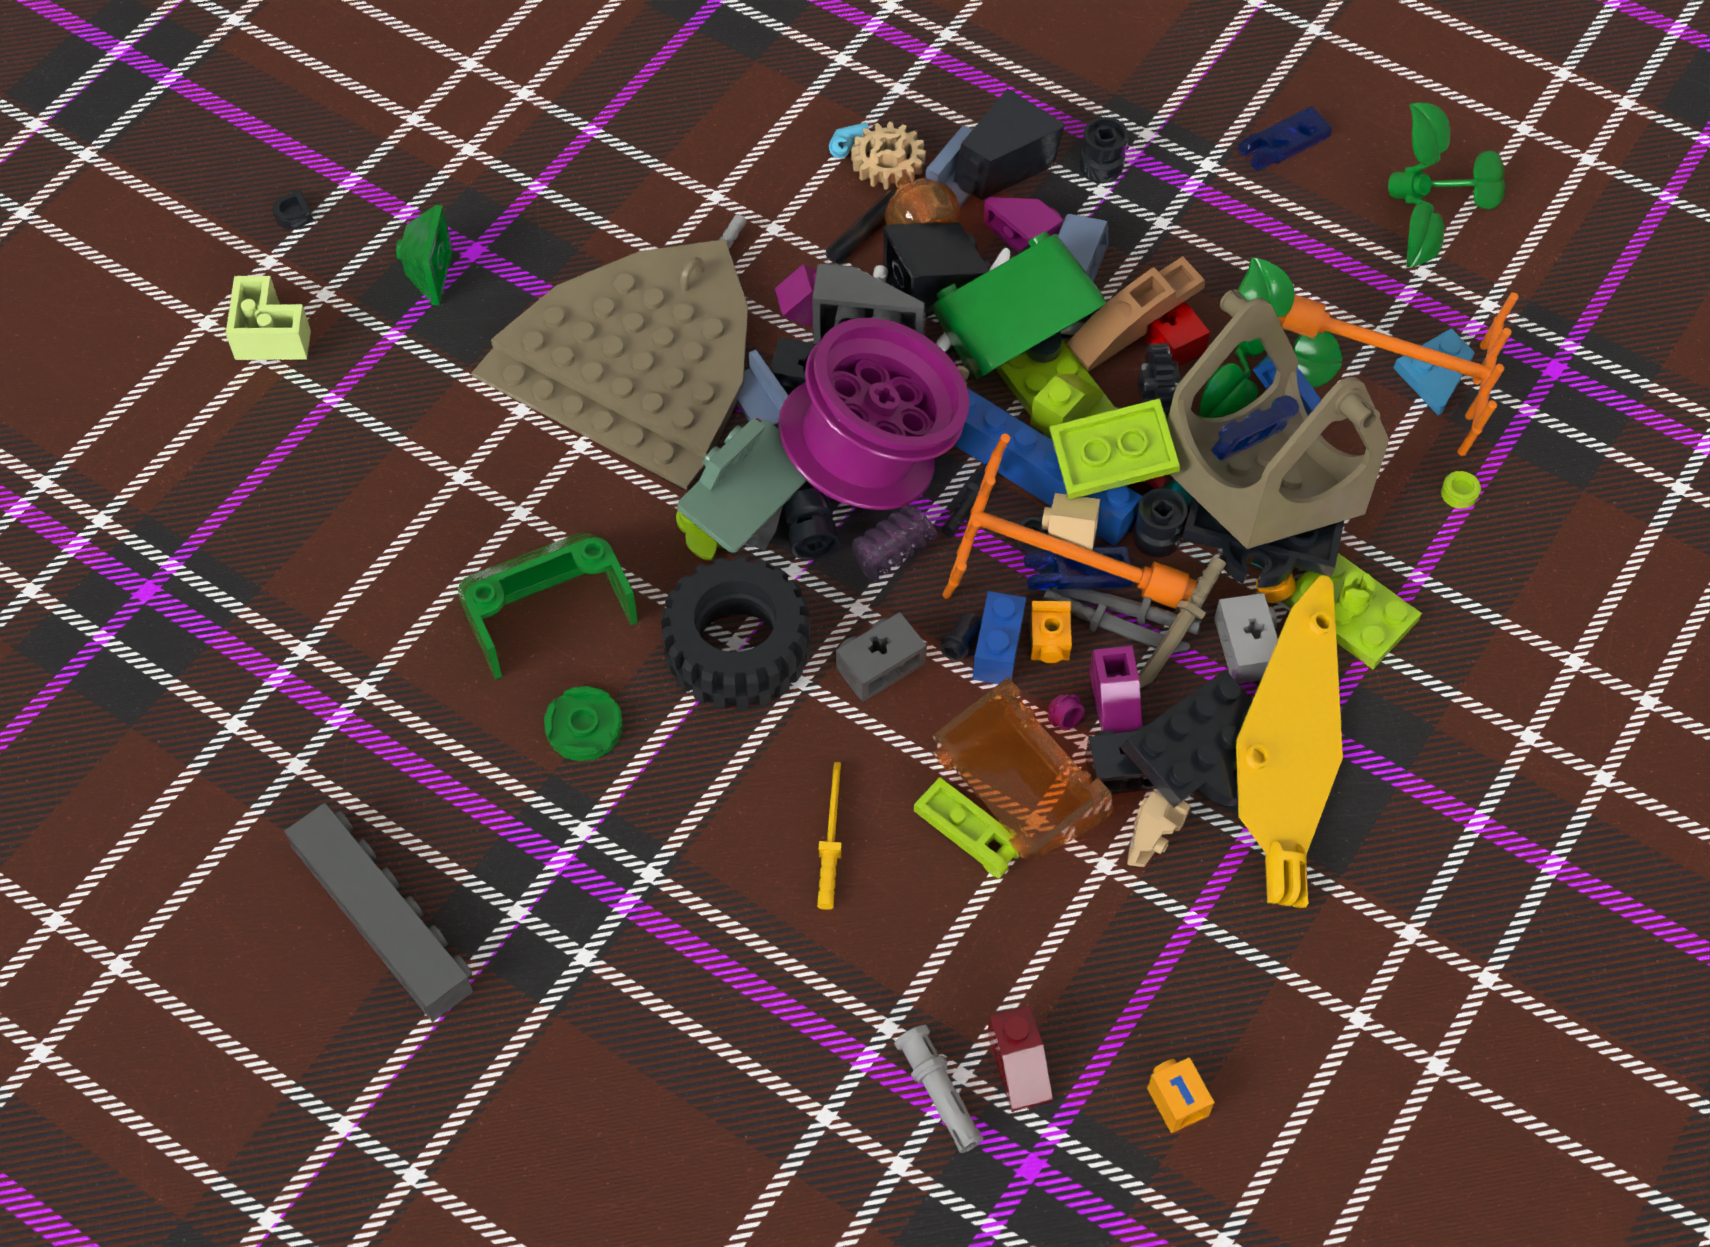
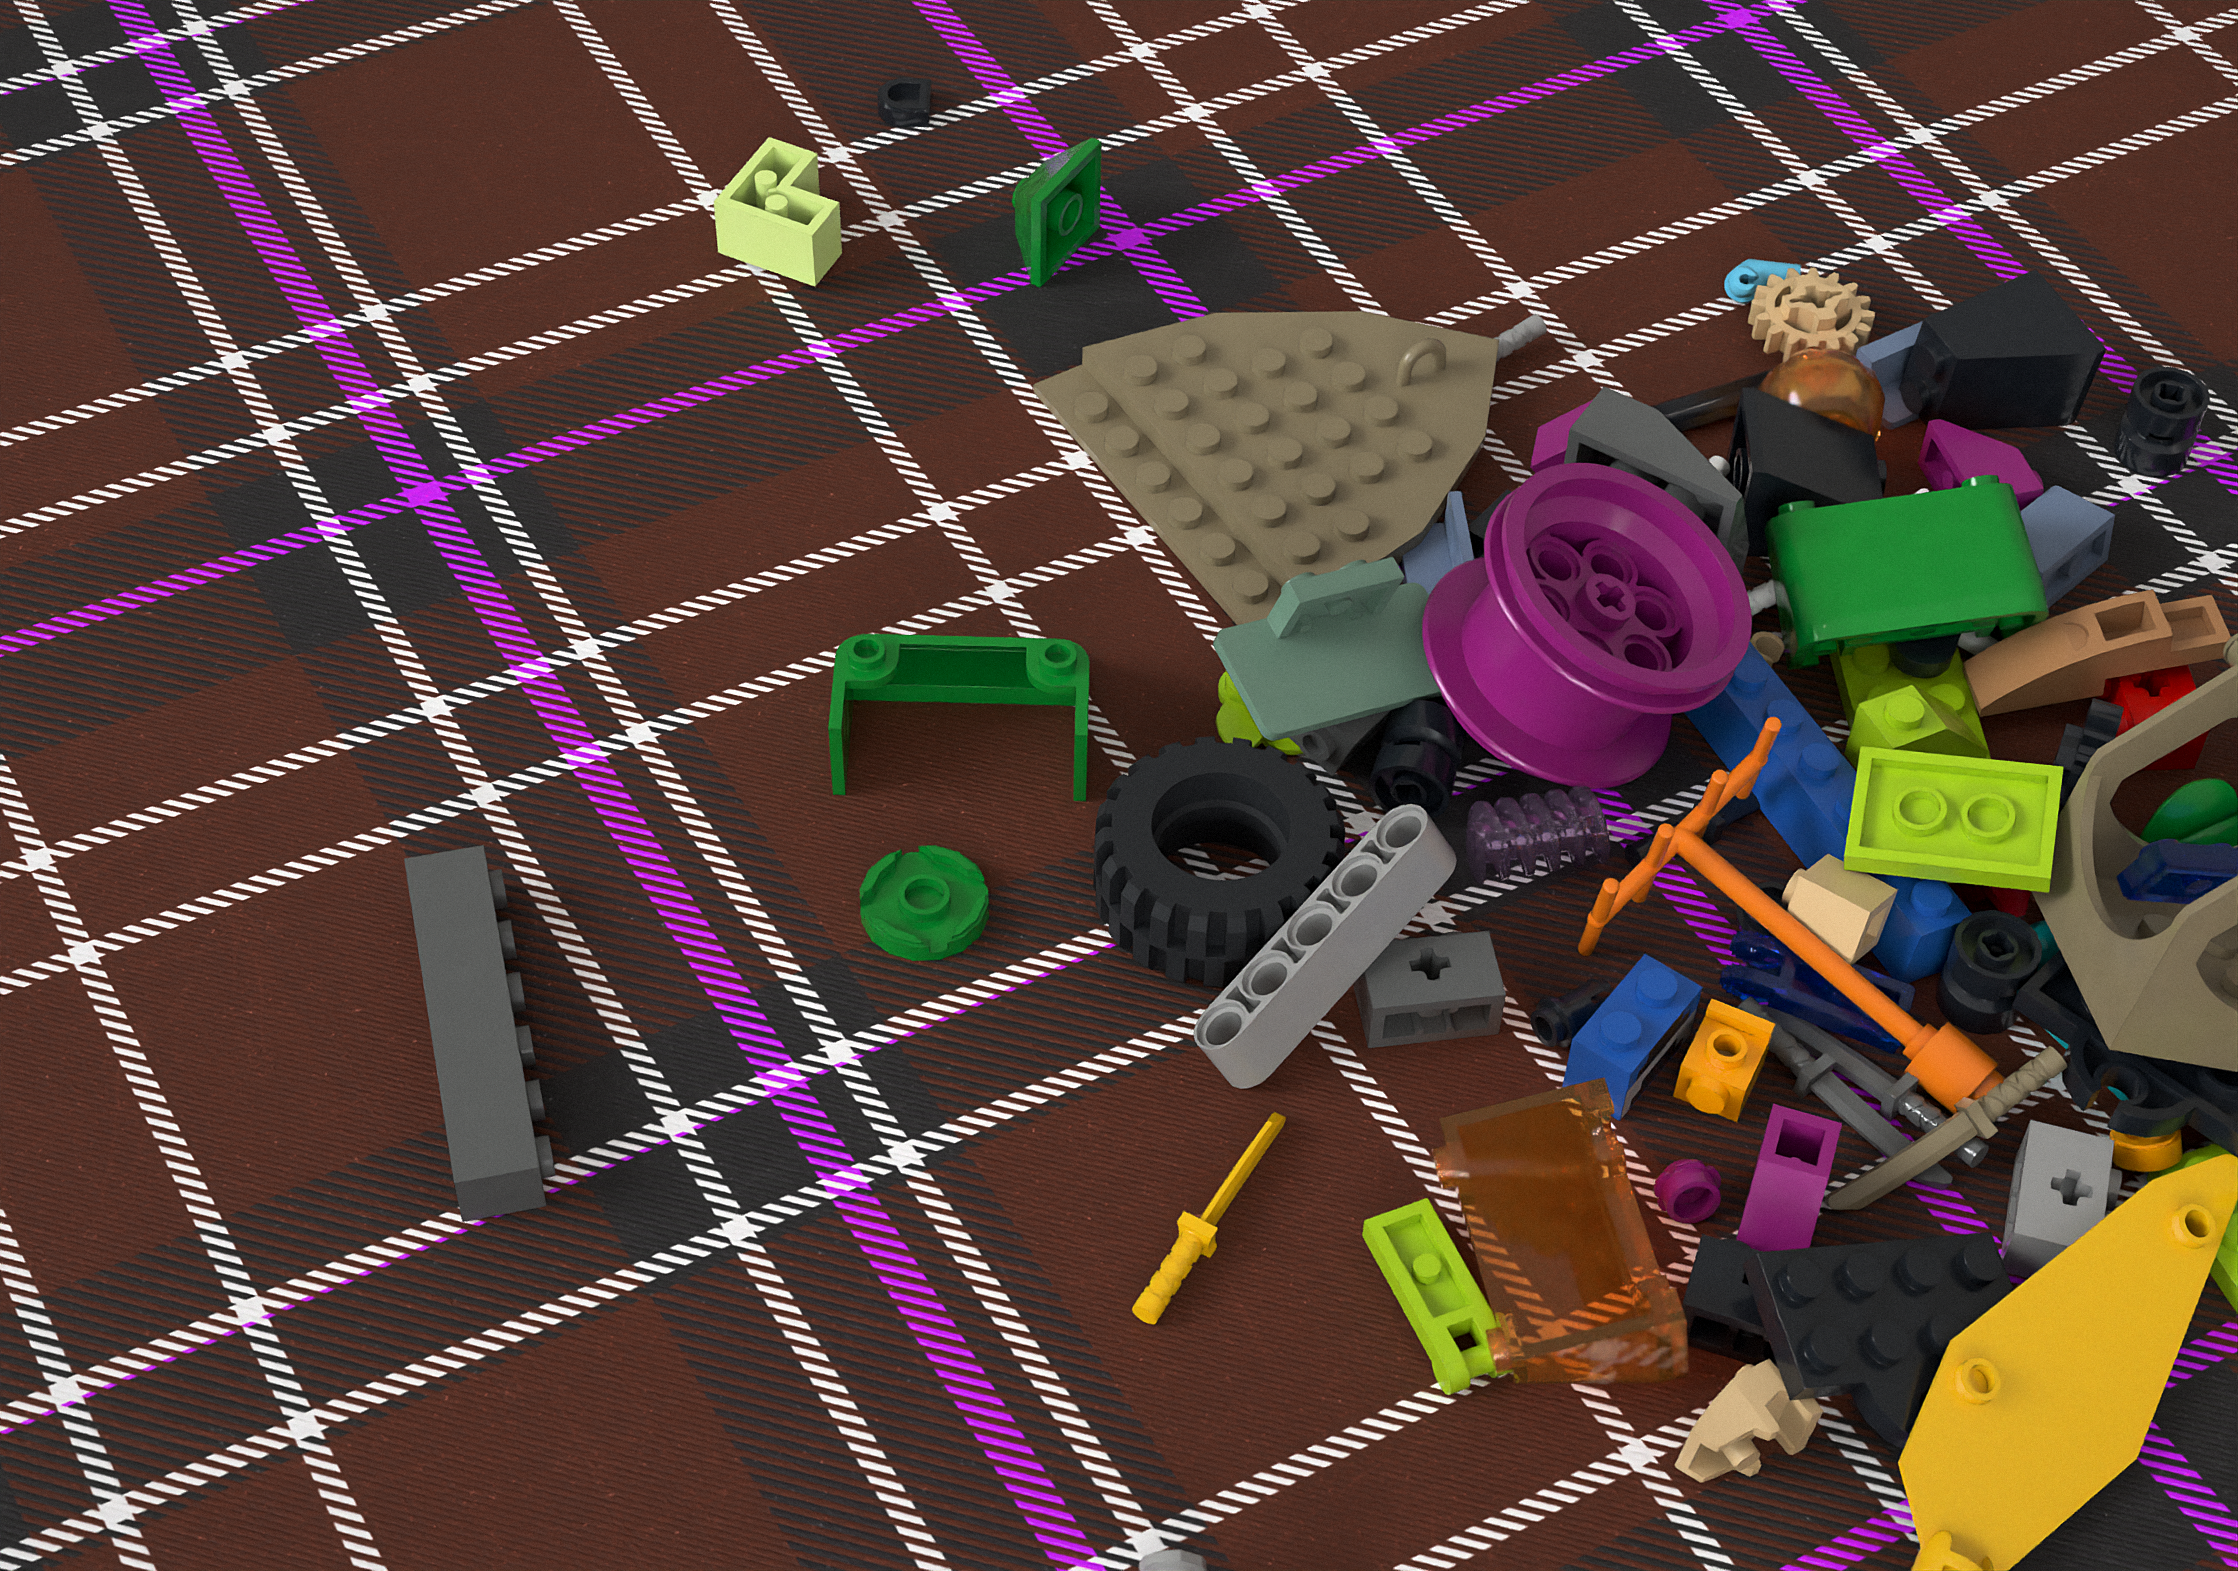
camera: 25 degrees right, 10 degrees down
(824, 678) = (1325, 946): none -> light grey beam

